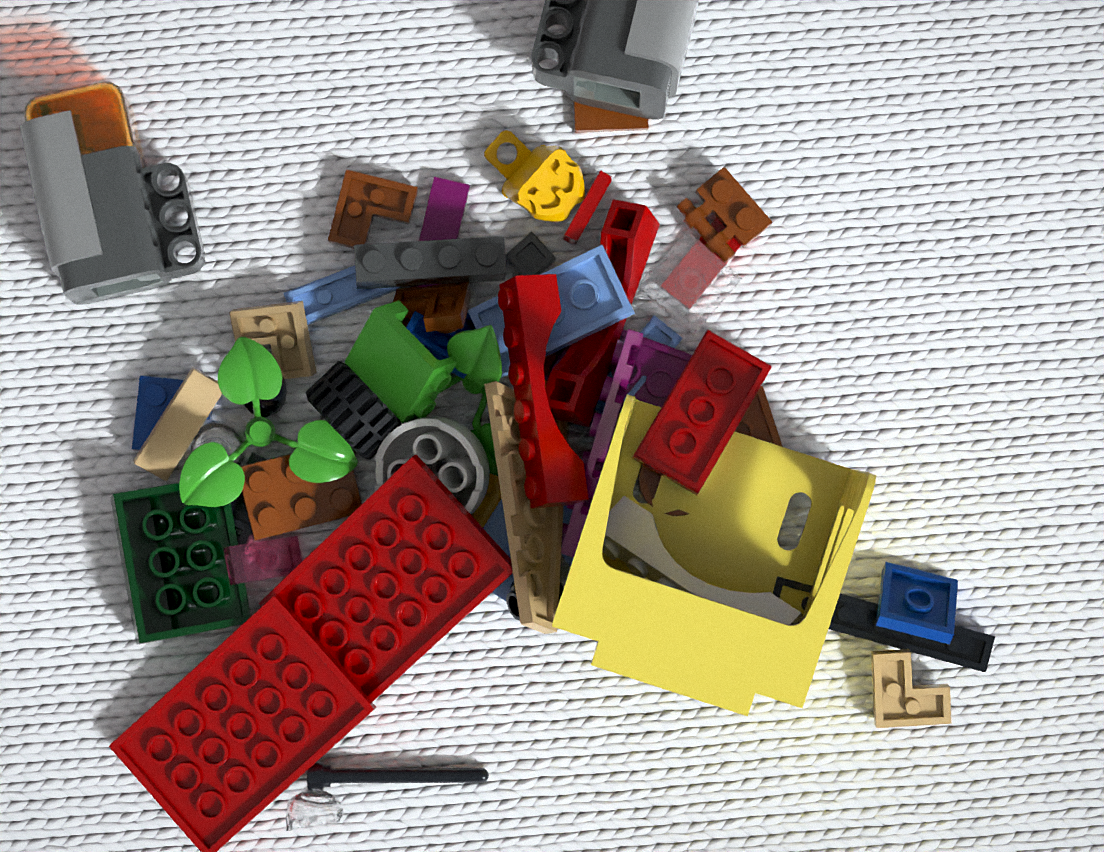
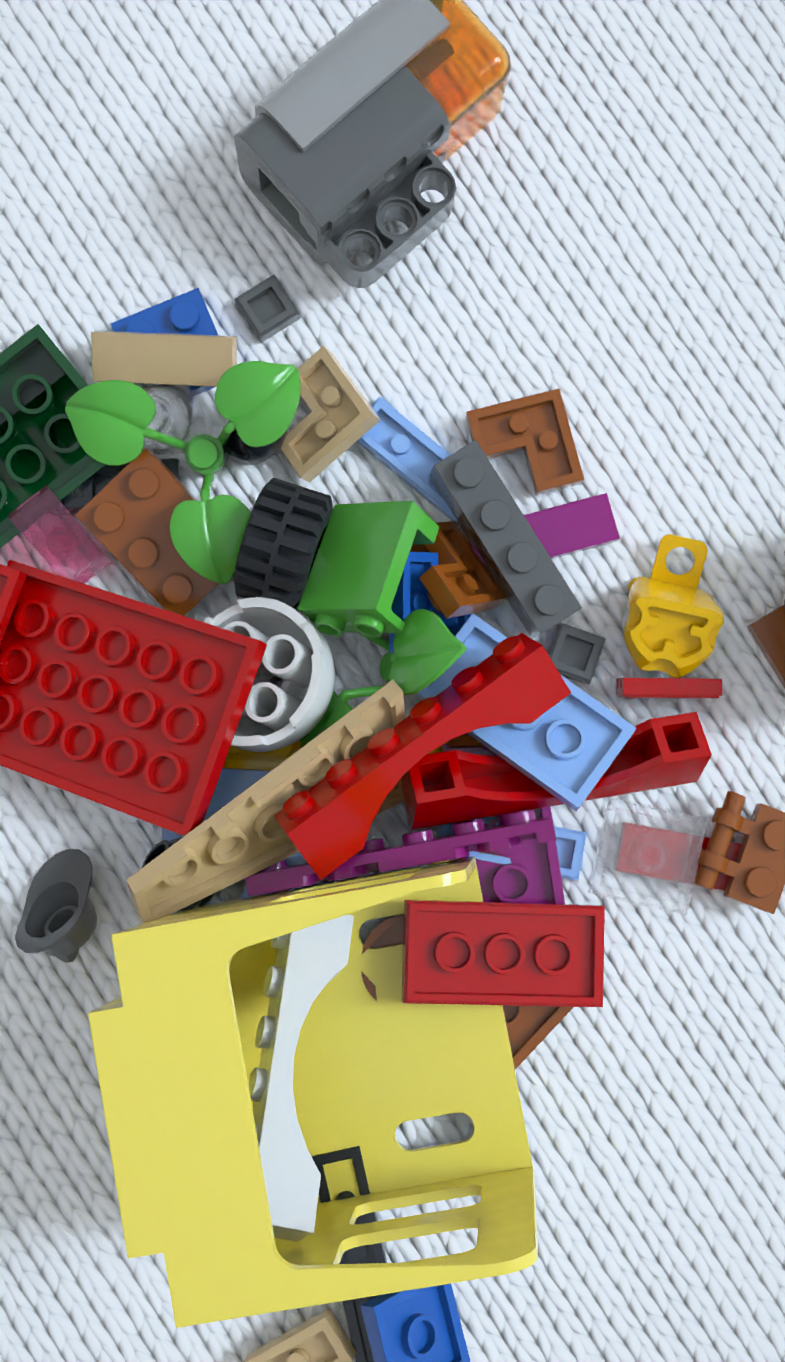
camera: 55 degrees right, 0 degrees up
(179, 336) = (267, 308): none -> dark grey tile
(512, 691) = (57, 907): none -> dark grey piece

